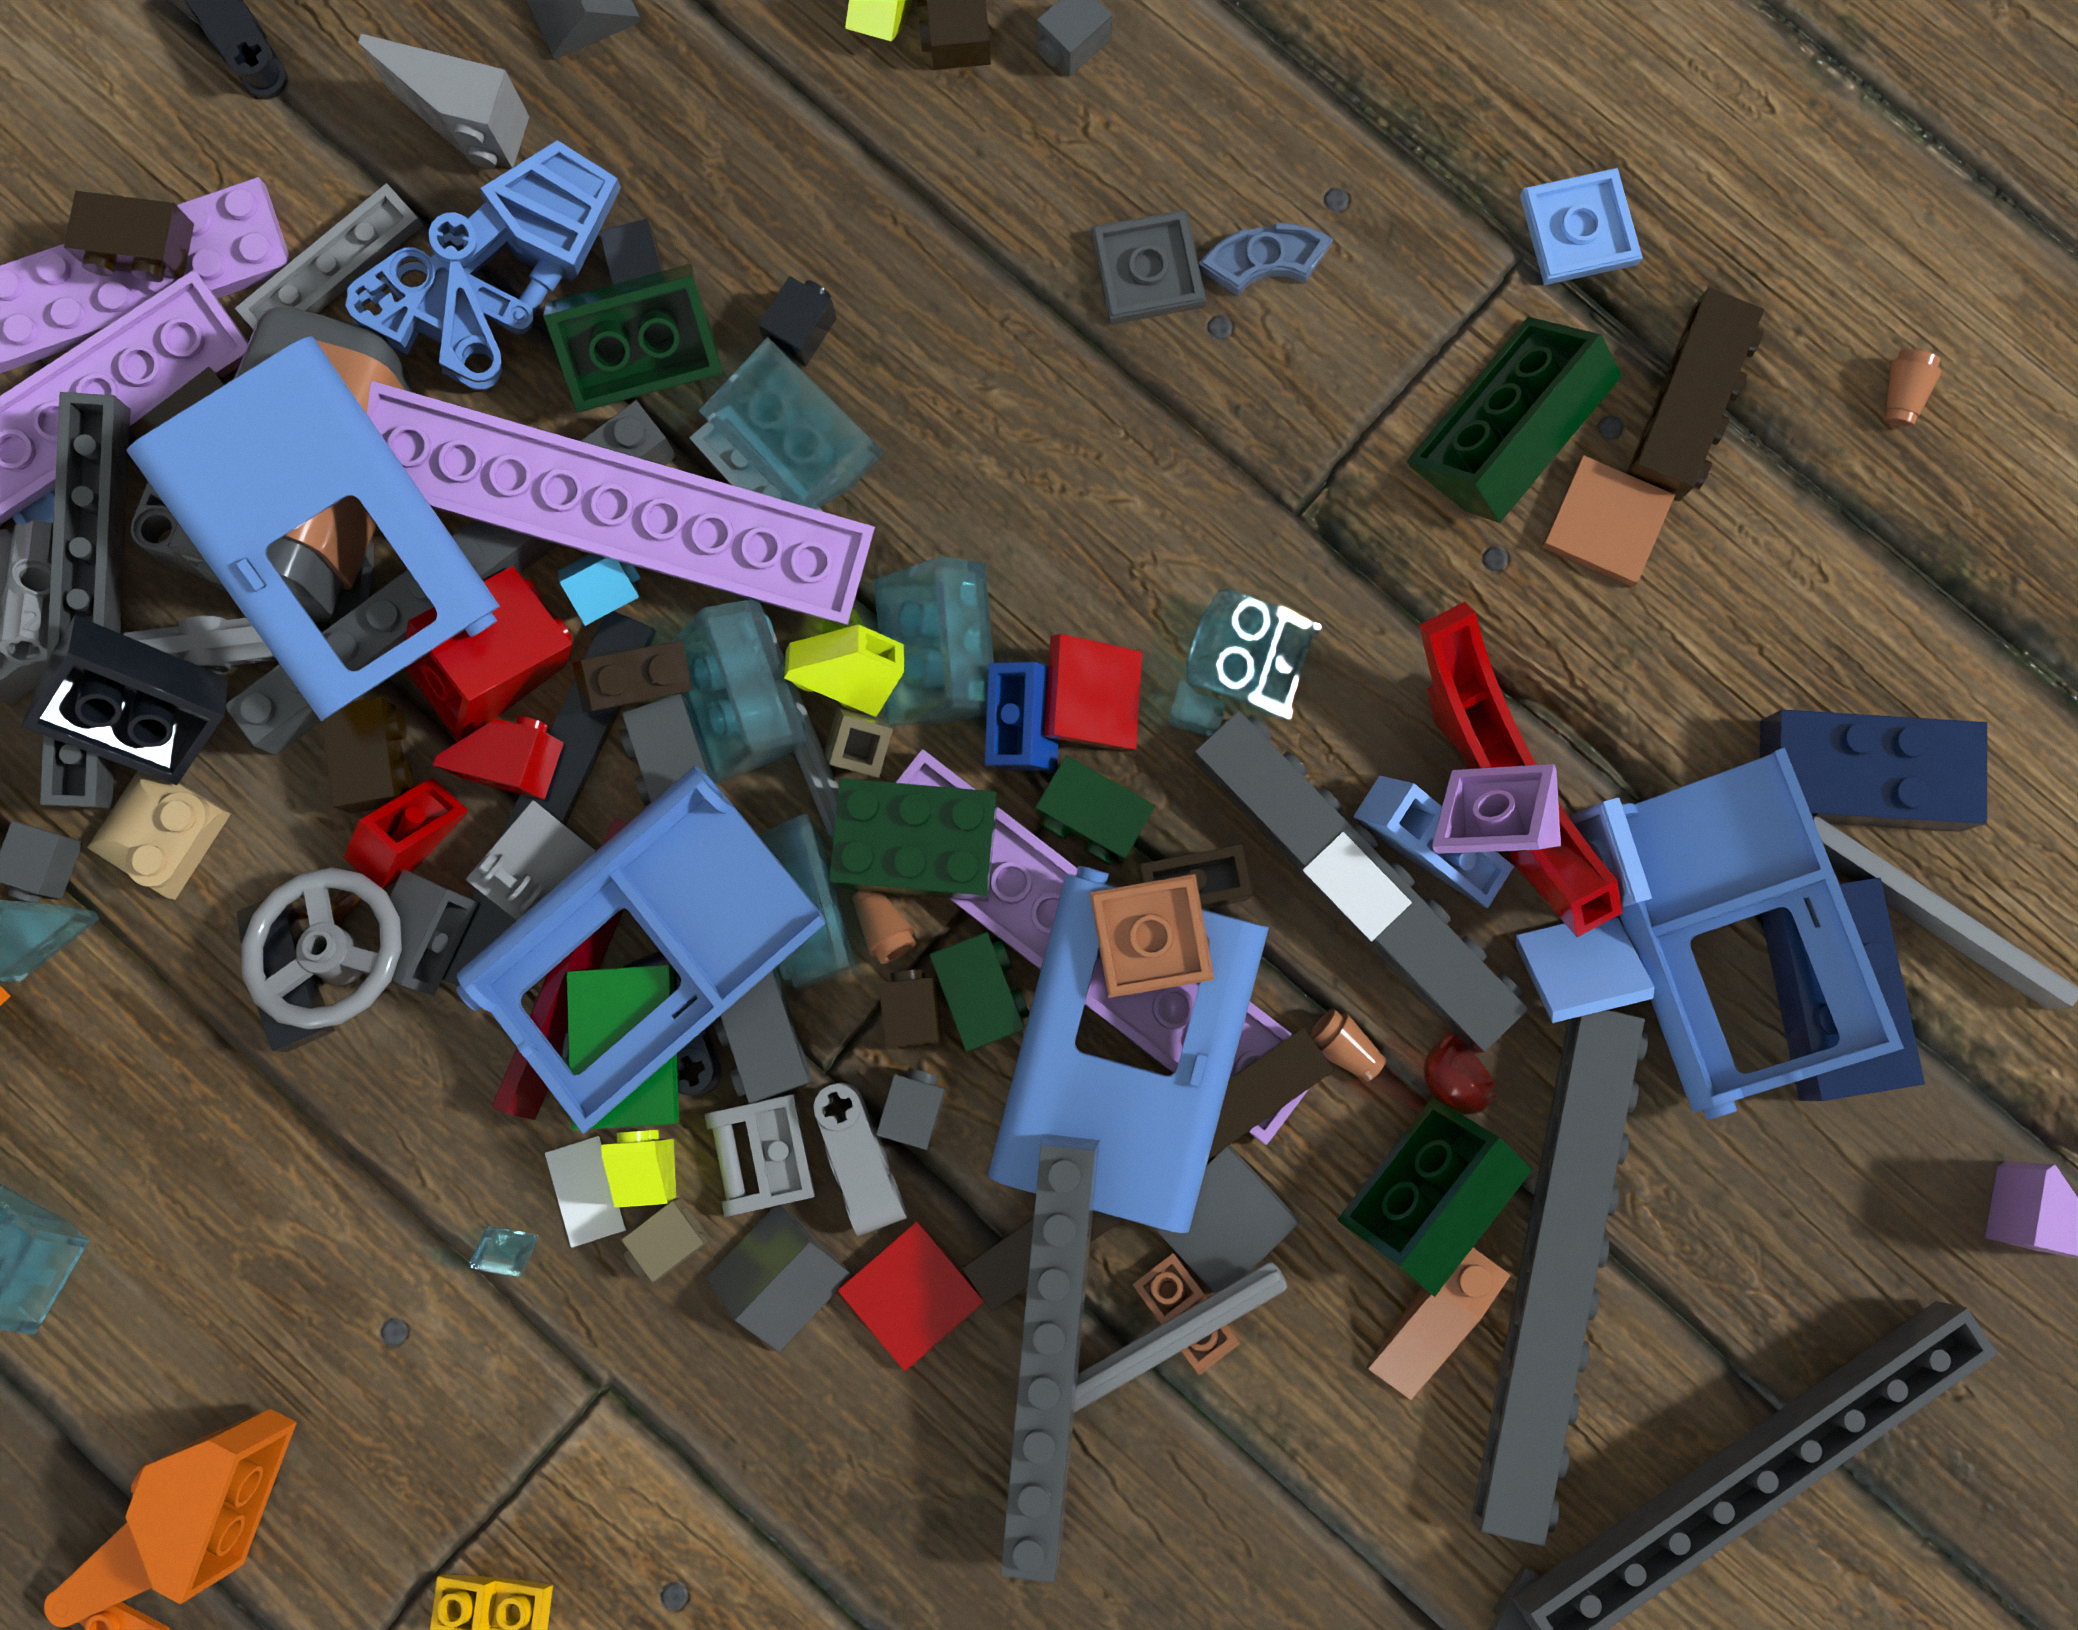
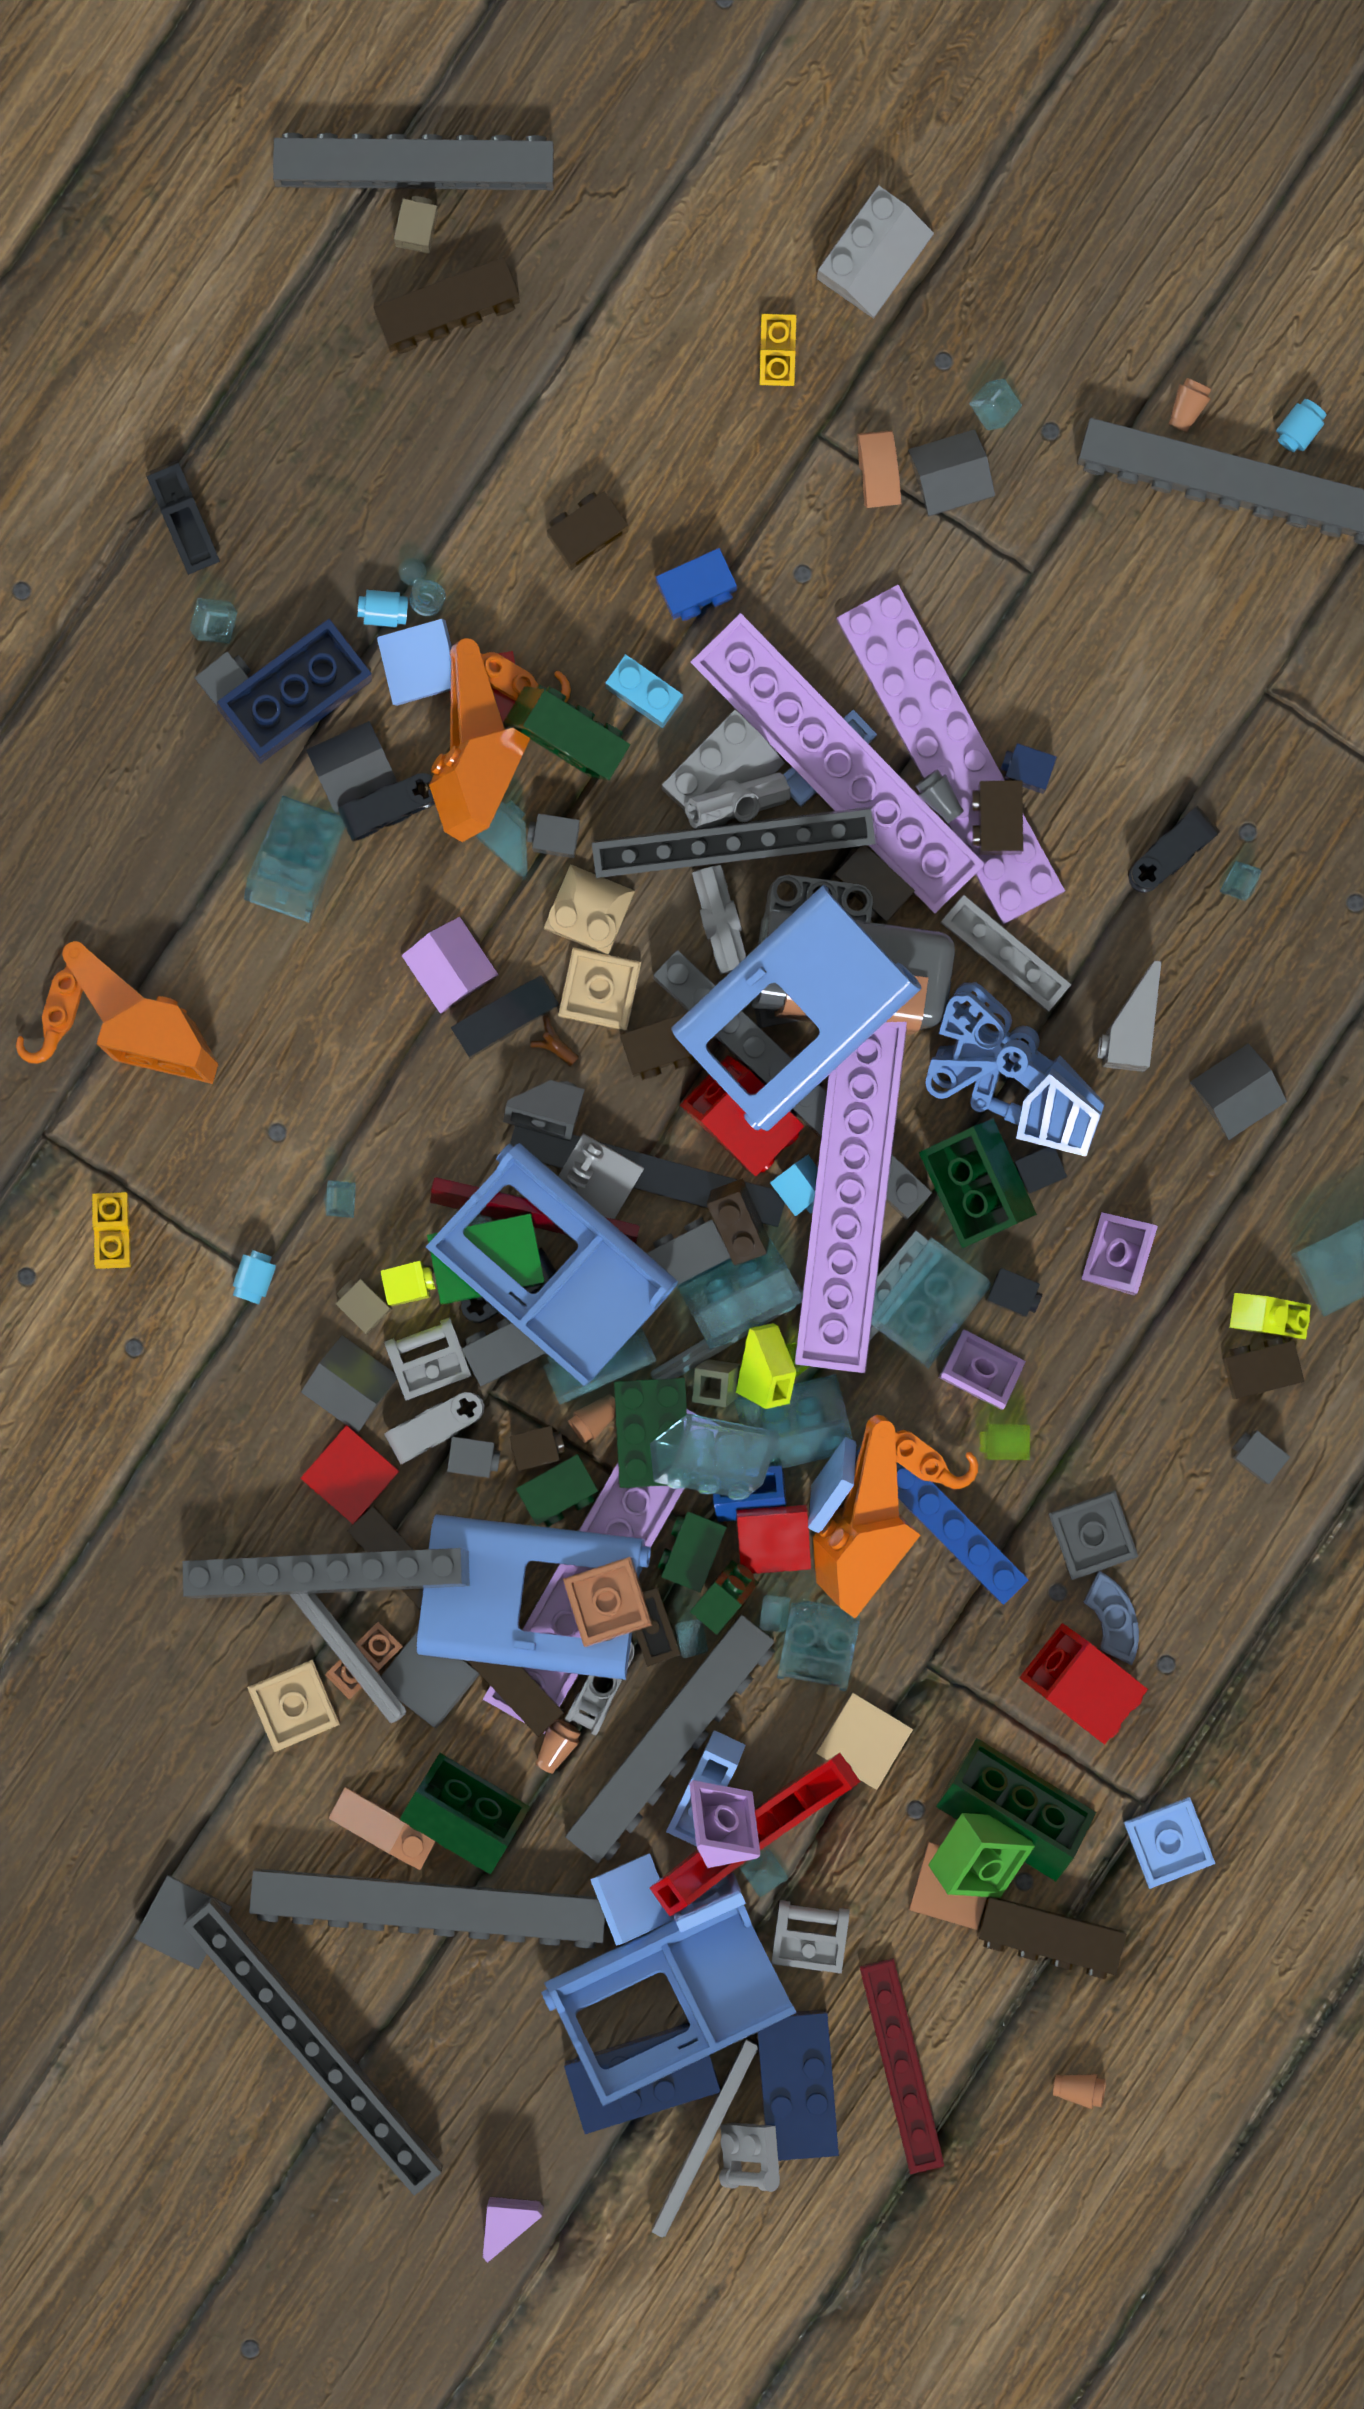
camera: 80 degrees right, 5 degrees up
(65, 178) = (1029, 766): none -> dark blue brick
(83, 314) = (939, 795): none -> dark grey cone
(126, 701) = (668, 891): black slope -> none
(193, 1043) = (449, 964): none -> lavender slope
(271, 829) = (599, 989): none -> tan tile
(322, 949) = (533, 1044): light grey piece -> none
(403, 832) = (610, 1082): red slope -> none
(505, 757) = (671, 1144): red slope -> none
(584, 1192) = (387, 1244): white sticker -> none
(595, 1400) = (253, 1277): none -> medium azure brick
(768, 168) = (1119, 1253): none -> lavender slope
(902, 379) = (982, 1369): none -> lavender slope
(957, 746) = (713, 1456): none -> clear light blue slope
(1003, 358) = (1005, 1442): none -> clear neon green brick
(1028, 593) = (832, 1485): none -> light blue tile
(1094, 459) = (959, 1535): none -> blue brick
(1113, 555) = (868, 1533): none -> orange slope
(1166, 770) = (724, 1596): none -> dark green brick
(1215, 831) = (691, 1637): none -> clear light blue slope
(1239, 1429) = (293, 1705): none -> tan tile
(1293, 983) = (594, 1702): none -> light grey piece
(1350, 301) = (1083, 1683): none -> red slope
(1357, 886) = (664, 1737): white sticker -> none
(1384, 611) = (866, 1739): none -> tan tile
(1458, 1076) = (547, 1823): clear red hair -> none
(1572, 776) = (764, 1873): none -> clear light blue slope
(1580, 467) = (979, 1856): none -> bright green slope
(1677, 728) = (807, 1948): none -> light grey plate
(1852, 626) = (901, 2066): none -> dark red tile
(1959, 841) = (749, 2144): none -> light grey plate

